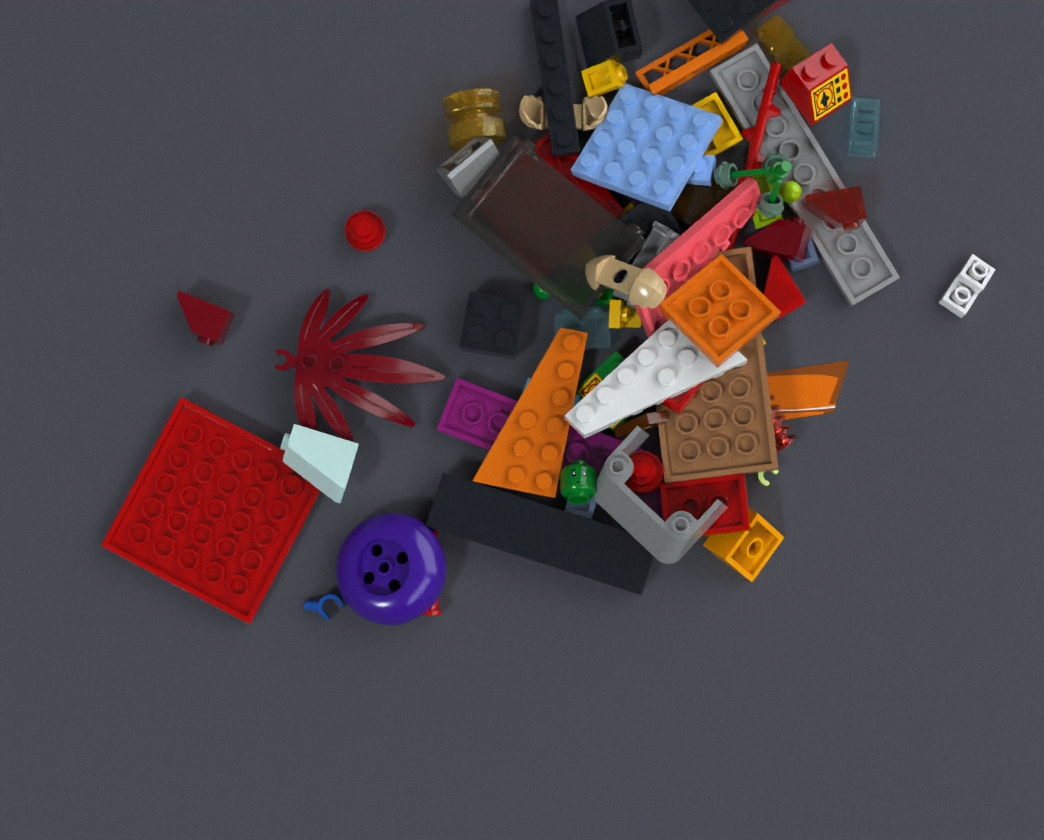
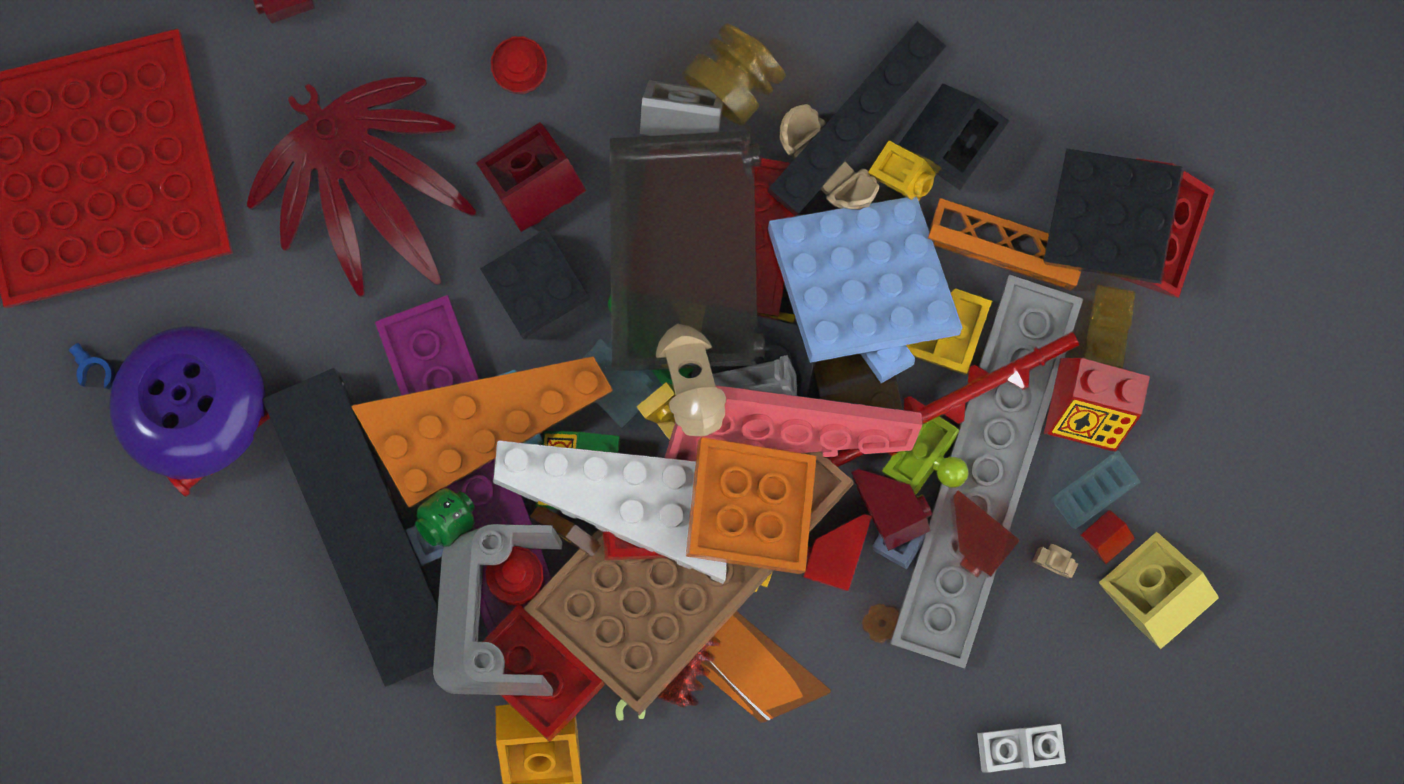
camera: 45 degrees right, 0 degrees up
(320, 459) = (236, 229): light aqua slope -> none
(431, 277) = (531, 176): none -> dark red slope
(773, 168) = (959, 433): plant -> none
(831, 306) = (871, 625): none -> clear orange plate
(884, 179) = (1056, 560): none -> tan plate
(893, 142) = (1108, 536): none -> red slope
(947, 139) = (1159, 590): none -> light yellow slope

